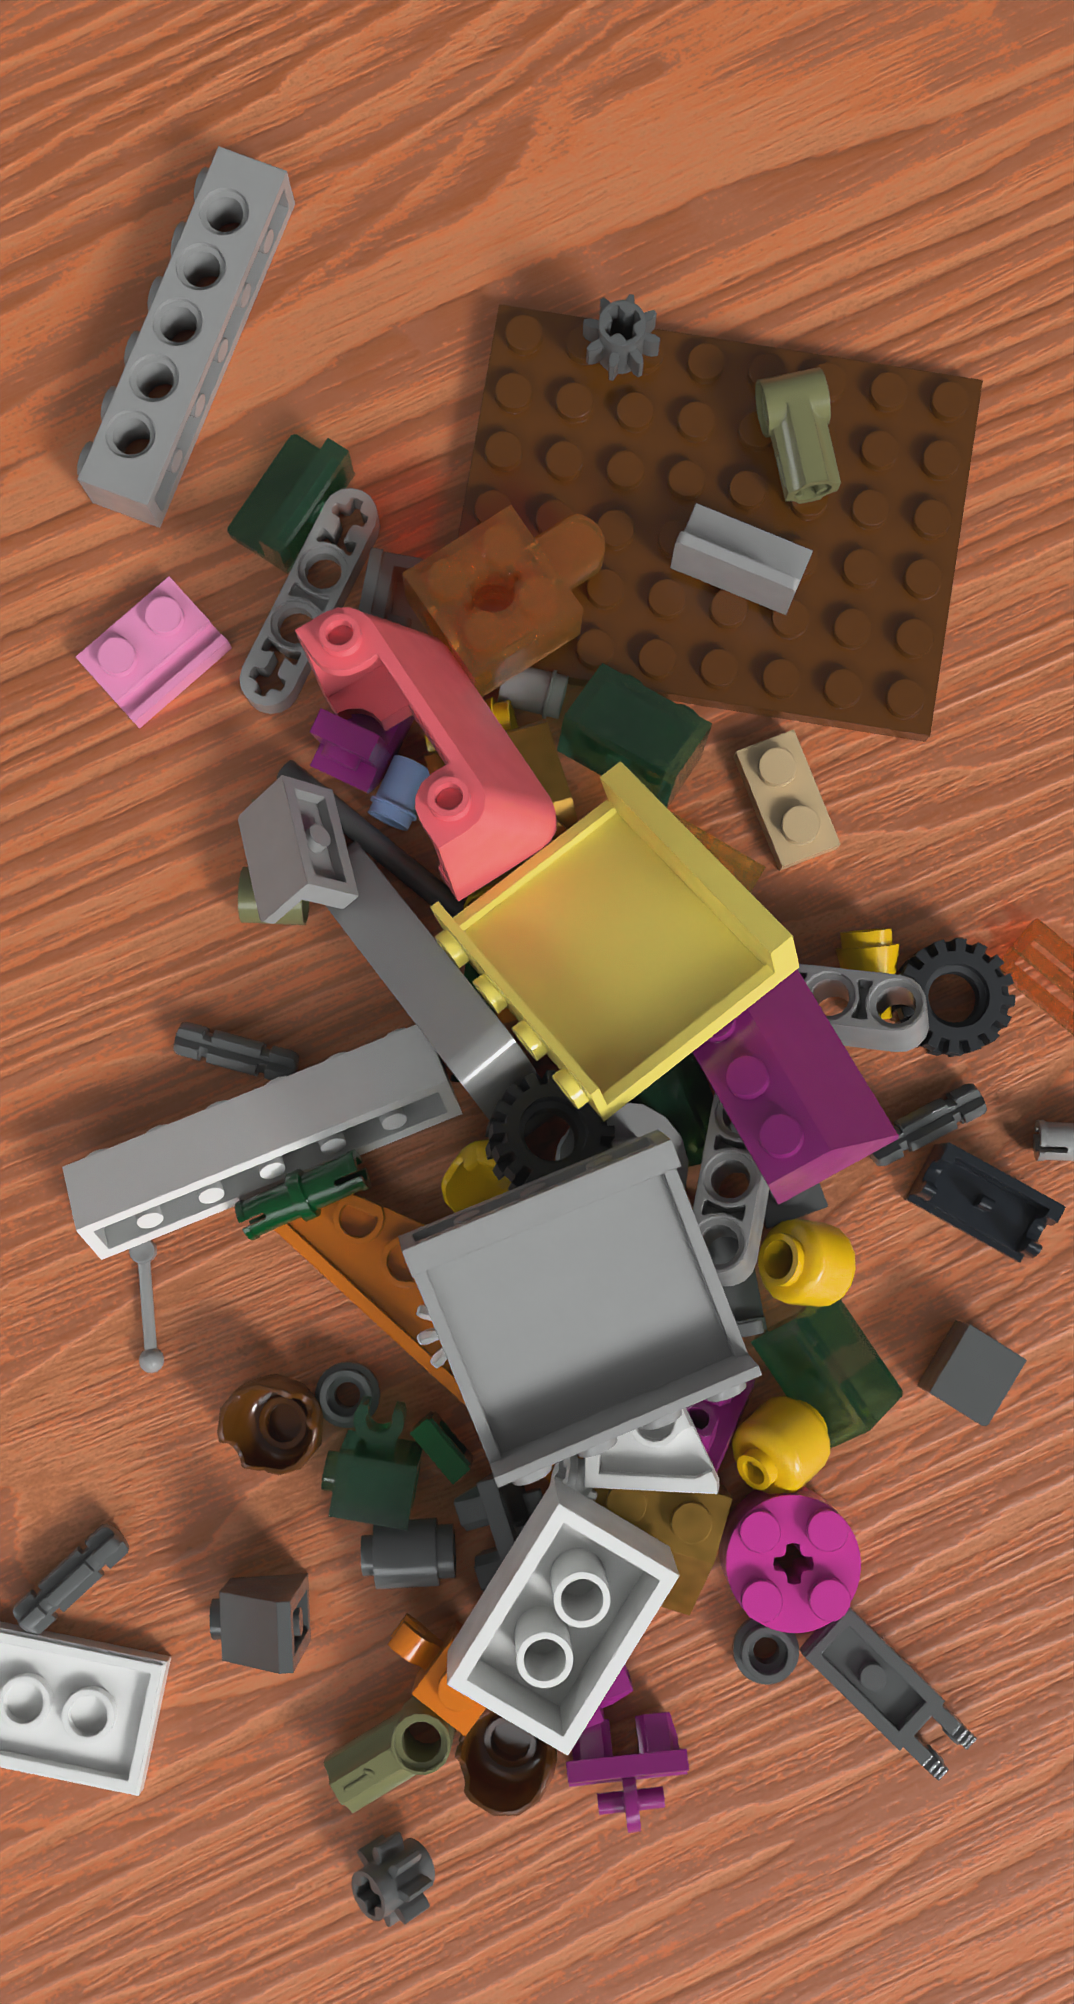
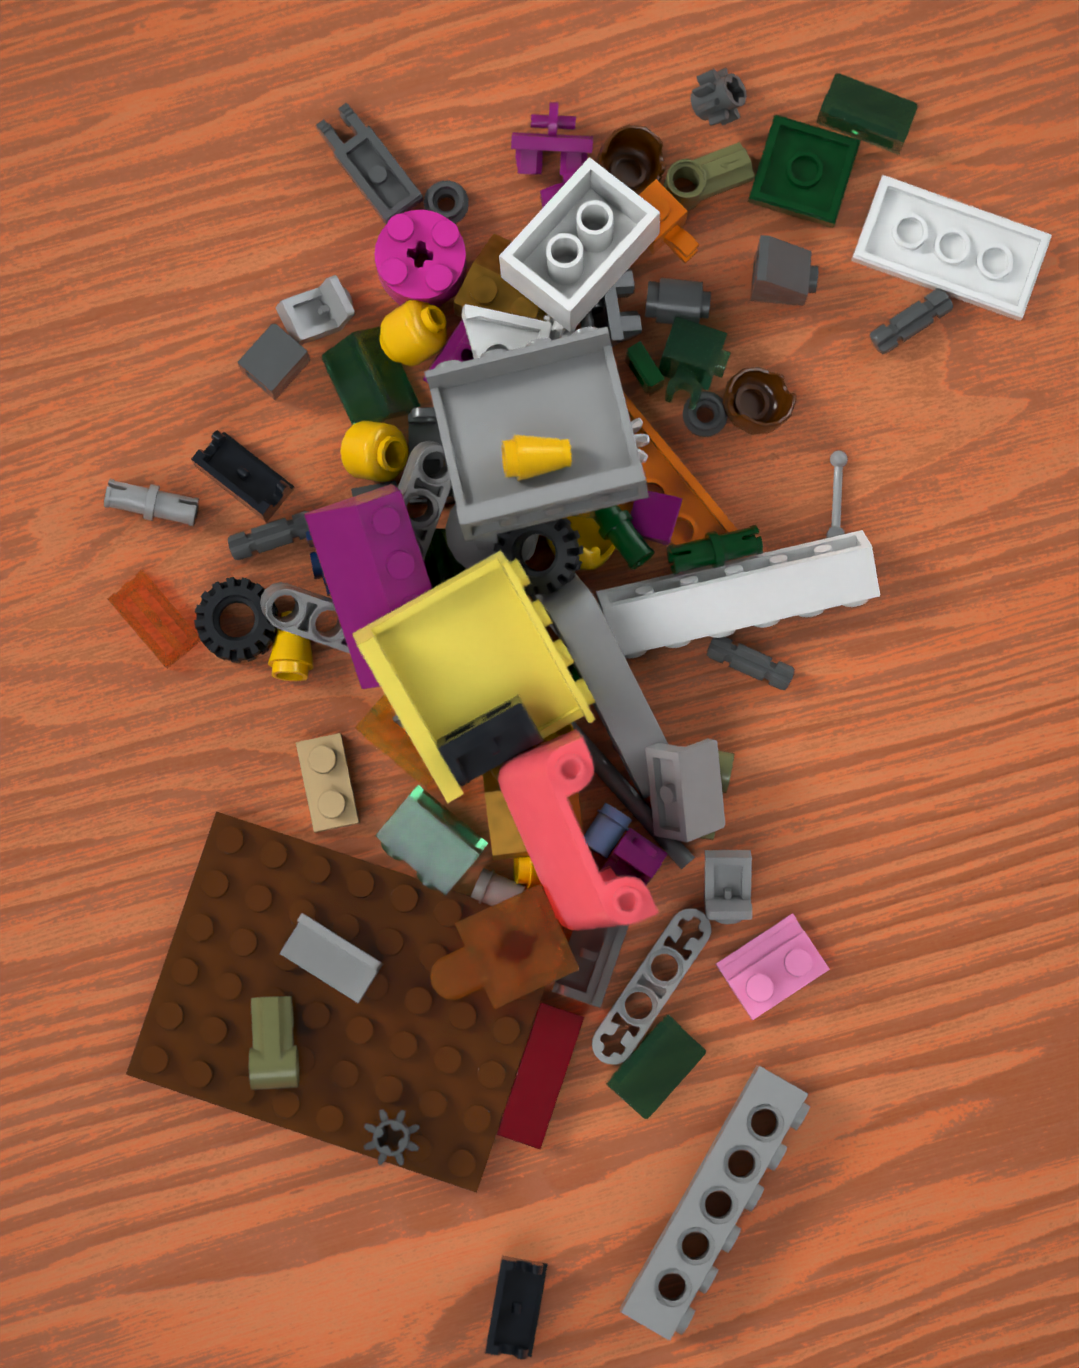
camera: 175 degrees left, 0 degrees up
(172, 1886) = (867, 113): none -> clear green panel
(224, 740) = (728, 885): none -> light grey bracket
(253, 1783) = (804, 171): none -> dark green plate
(385, 1220) = (656, 516): none -> magenta slope
(427, 172) = (516, 1307): none -> black hinge
(428, 1186) = (618, 528): none -> dark green pin
(438, 463) = (540, 1076): none -> dark red tile
(576, 1269) = (534, 456): none -> yellow cone
(578, 857) = (489, 740): none -> black hinge
(924, 1455) = (317, 311): none -> light grey bracket

